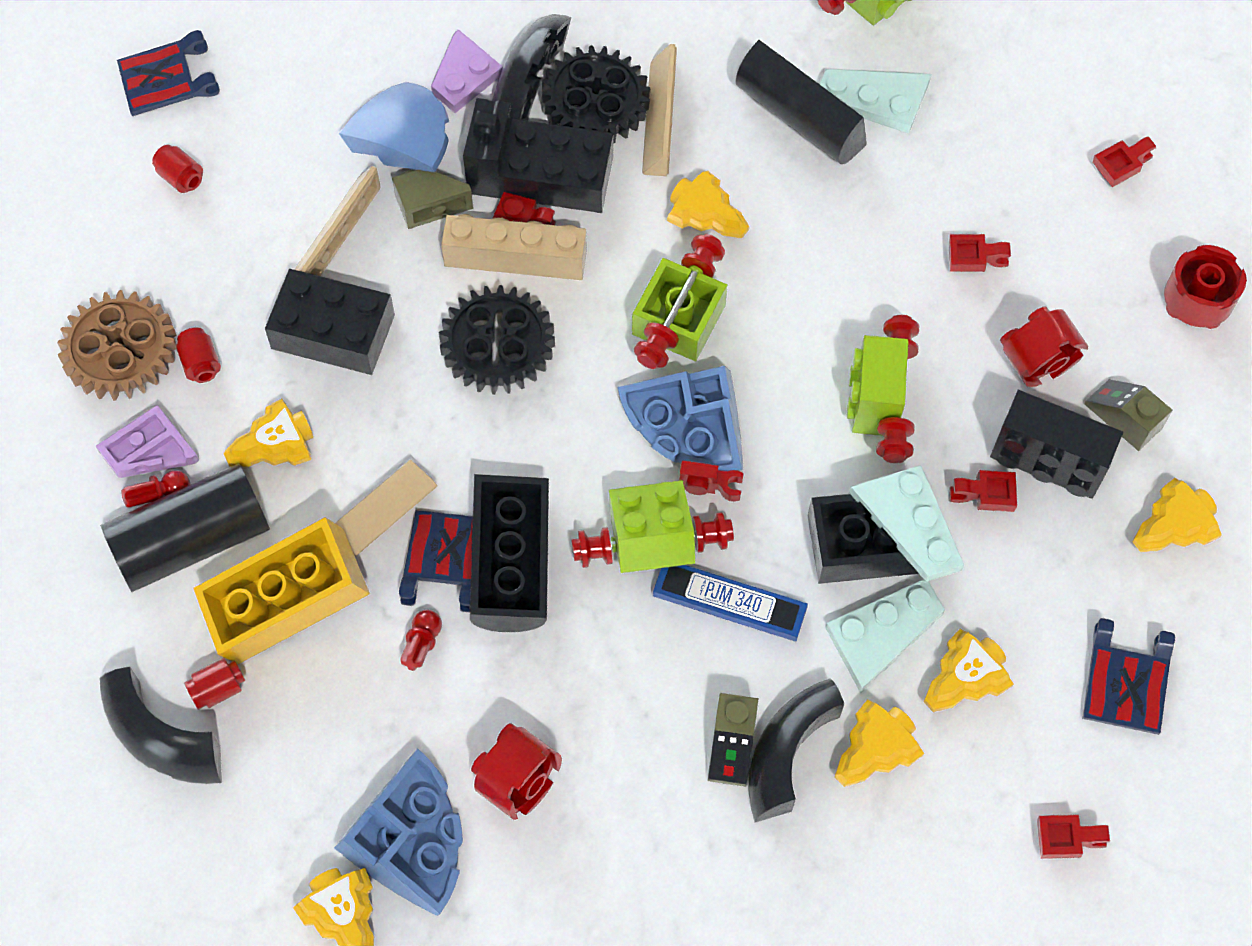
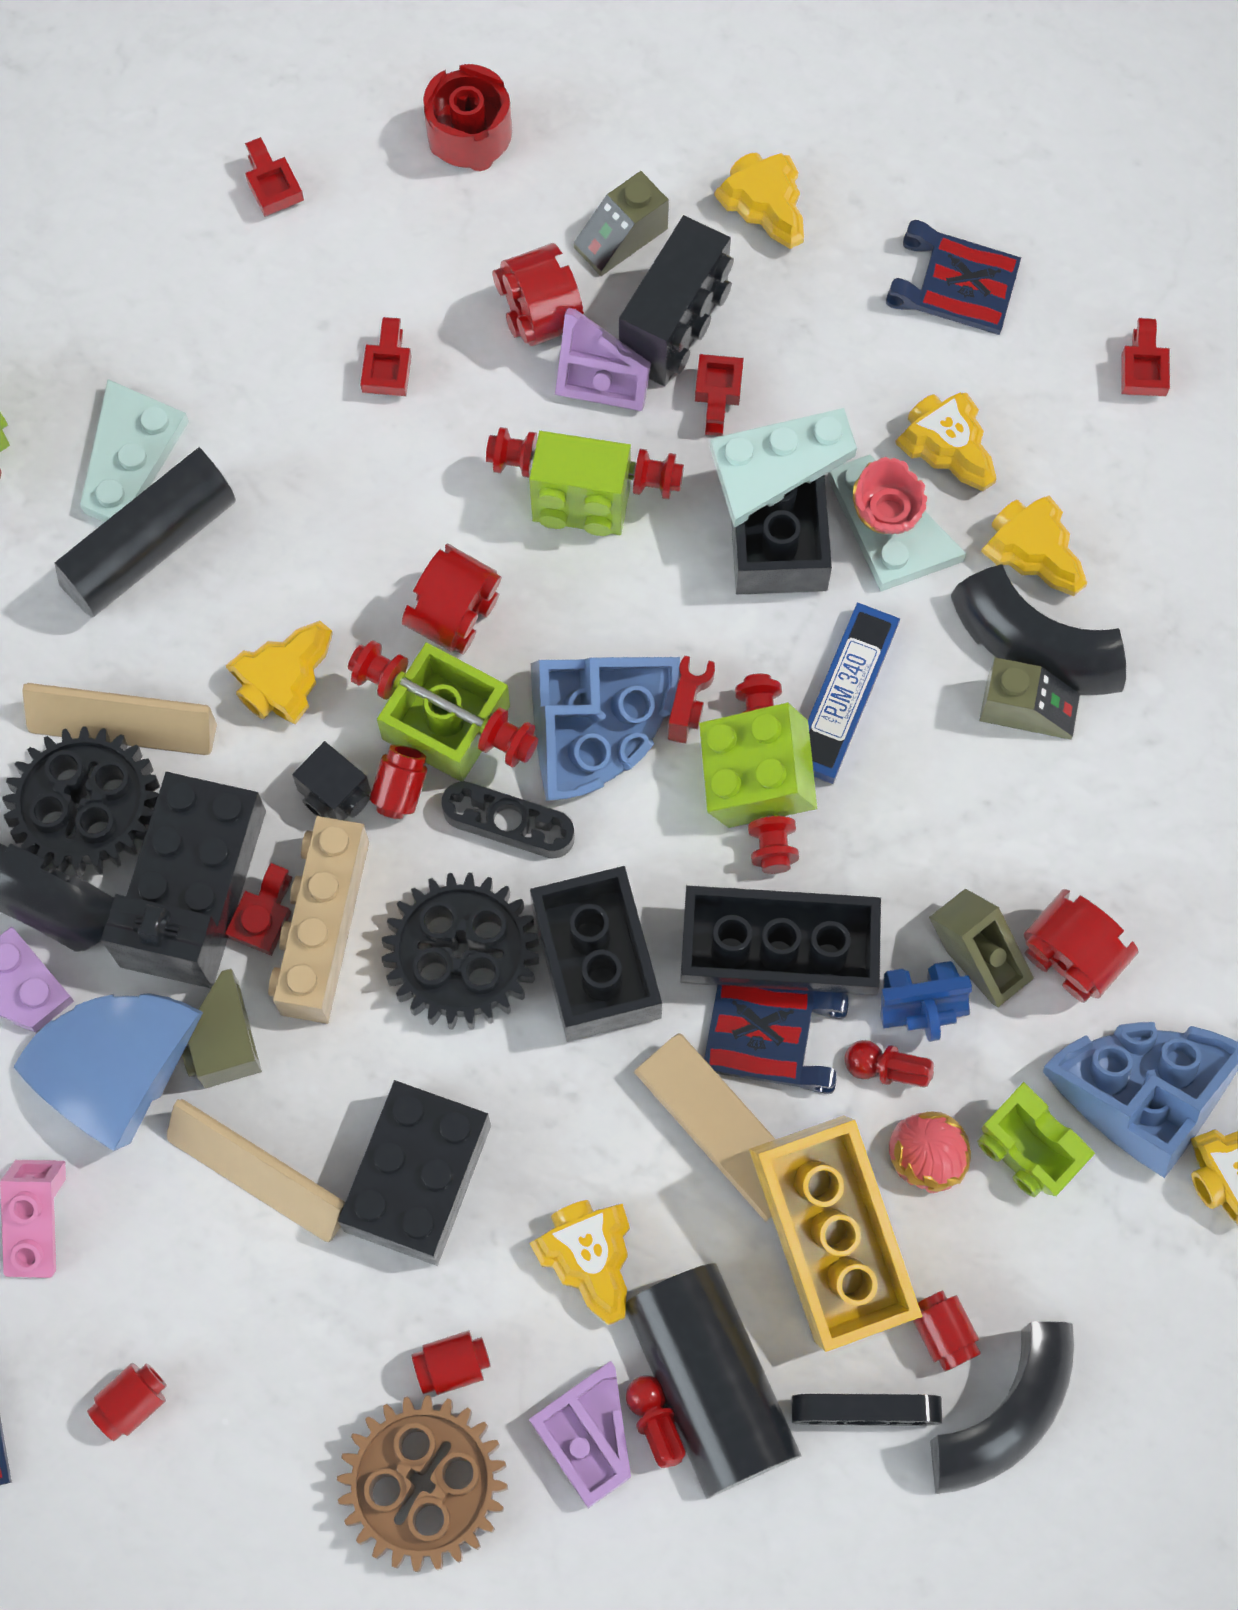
camera: 85 degrees left, 5 degrees up
(158, 629) = (867, 1409): none -> black beam
(305, 92) = (30, 1217): none -> bright pink bracket
(353, 671) = (930, 1151): none -> coral hair
(359, 744) = (1033, 1144): none -> lime cylinder
(465, 662) = (925, 1003): none -> blue hips
(495, 423) = (596, 953): none -> black brick
(518, 700) = (982, 945): none -> olive slope
(606, 380) = (471, 819): none -> black beam
(619, 245) = (332, 784): none -> black brick
(622, 285) = (399, 781): none -> red brick
(771, 305) = (451, 598): none -> red brick
(895, 612) = (889, 497): none -> coral hair
(990, 396) = (599, 366): none -> lavender wing

